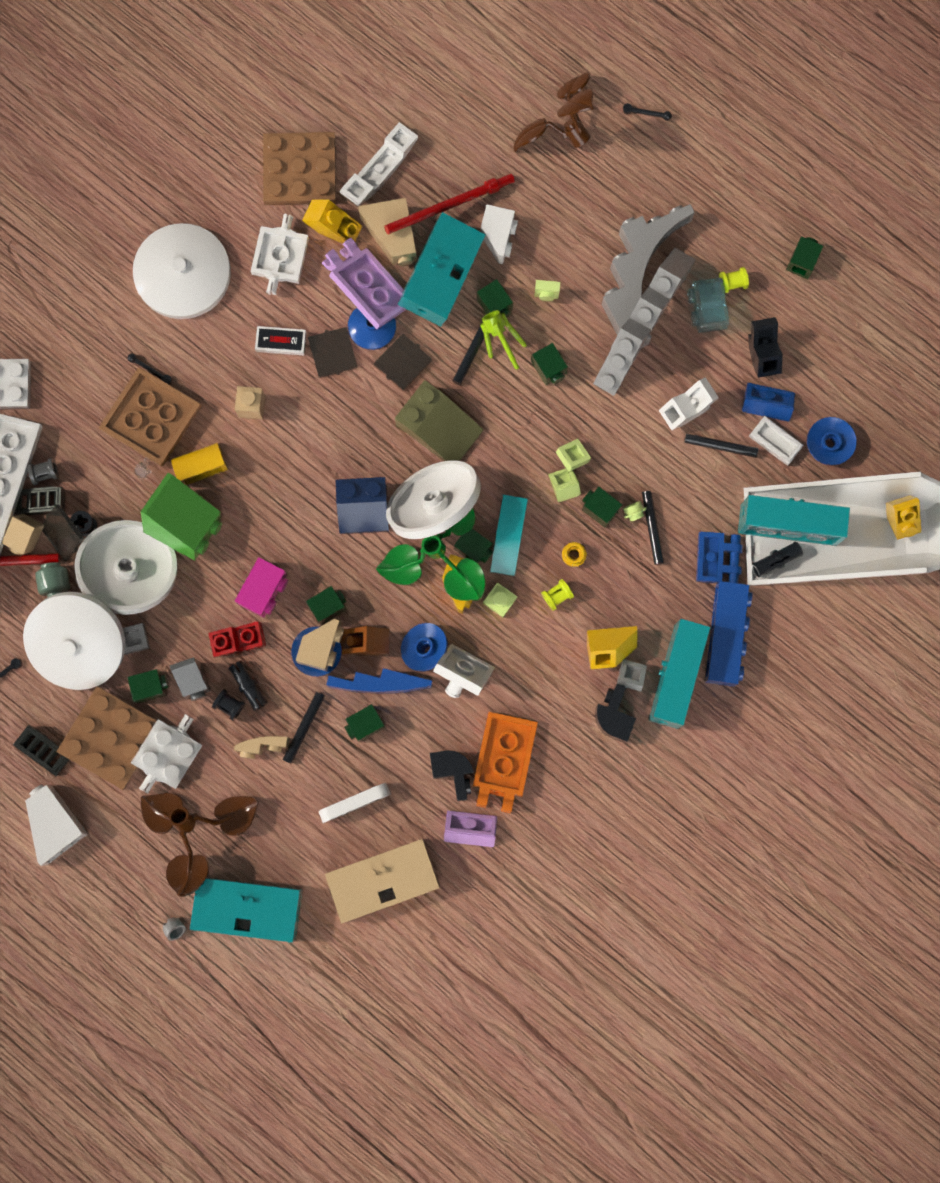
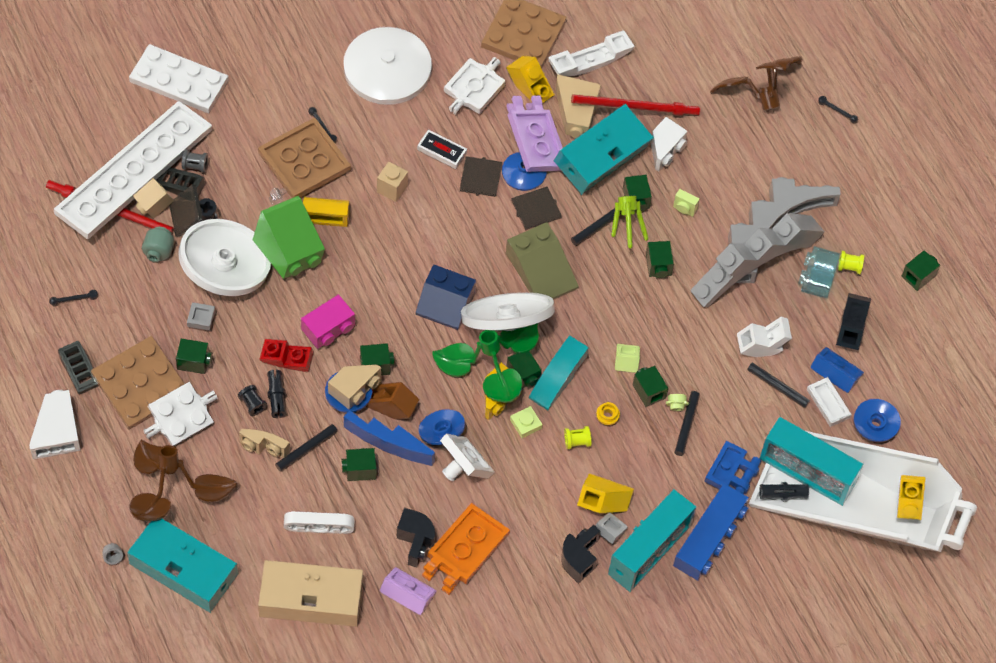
camera: 20 degrees right, 20 degrees down
(74, 640) = (152, 292): white dish -> none
(191, 679) = (232, 362): slope -> none
(573, 455) = (645, 336): yellowish green plate -> none

